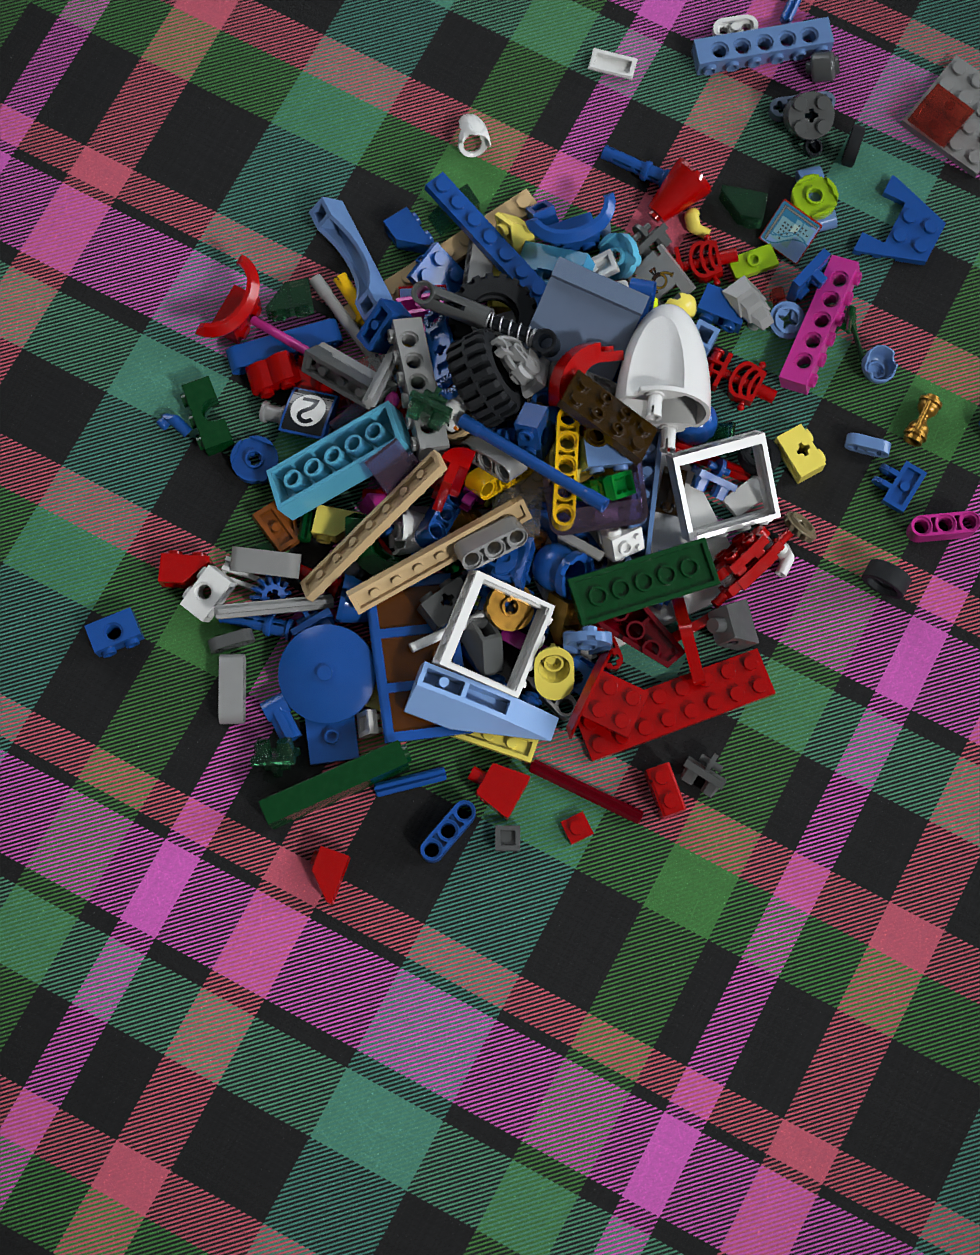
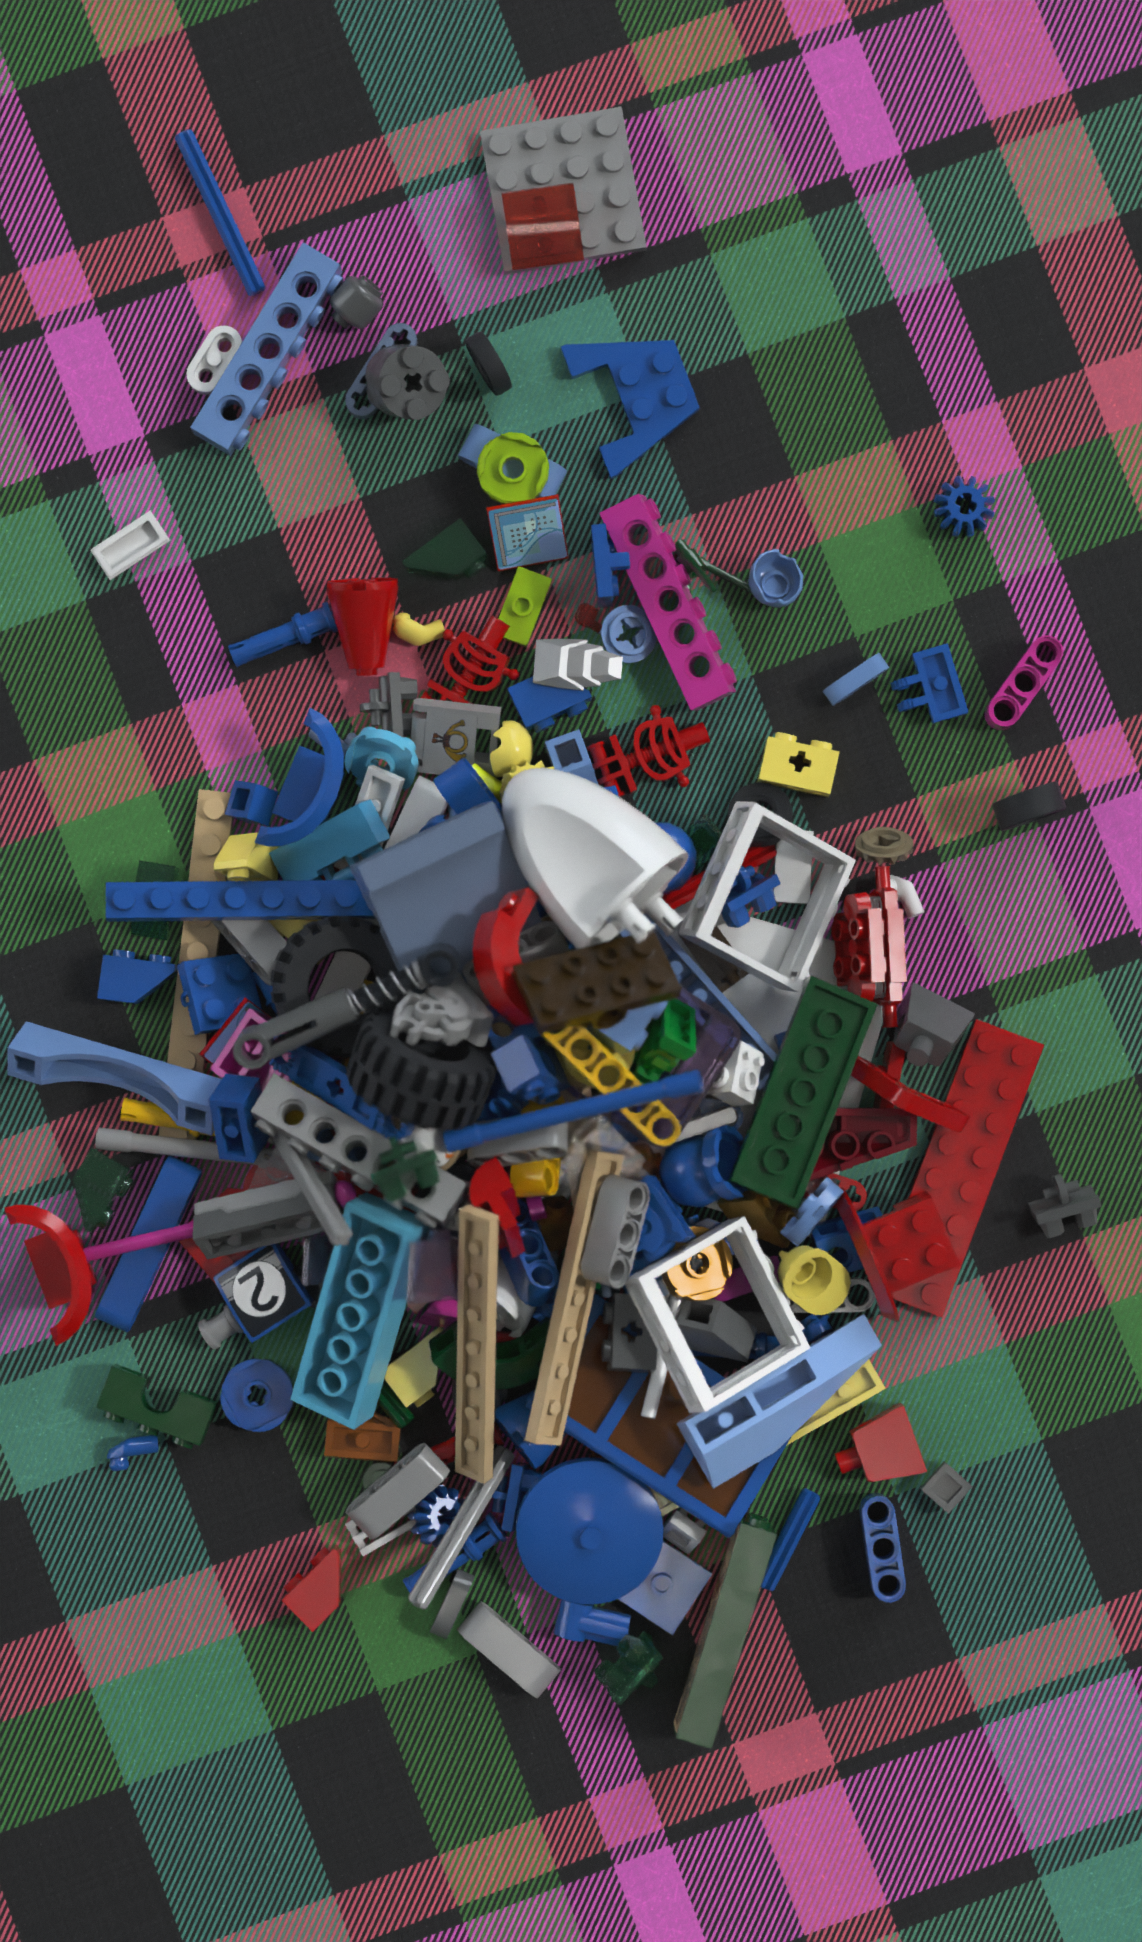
camera: 50 degrees left, 10 degrees up
(100, 632) = (313, 1746): blue brick -> none
(221, 588) = (374, 1606): white brick -> none
(273, 374) = (174, 1287): red brick -> none
(329, 871) = (811, 1717): red slope -> none
(473, 125) = (70, 786): white piece -> none
(576, 828) = (1000, 1399): red plate -> none
(586, 791) = (968, 1353): dark red axle -> none
(665, 790) = (1046, 1268): red brick -> none
(814, 145) = (449, 402): black hinge -> none
(917, 430) = (887, 604): pearl gold piece -> none

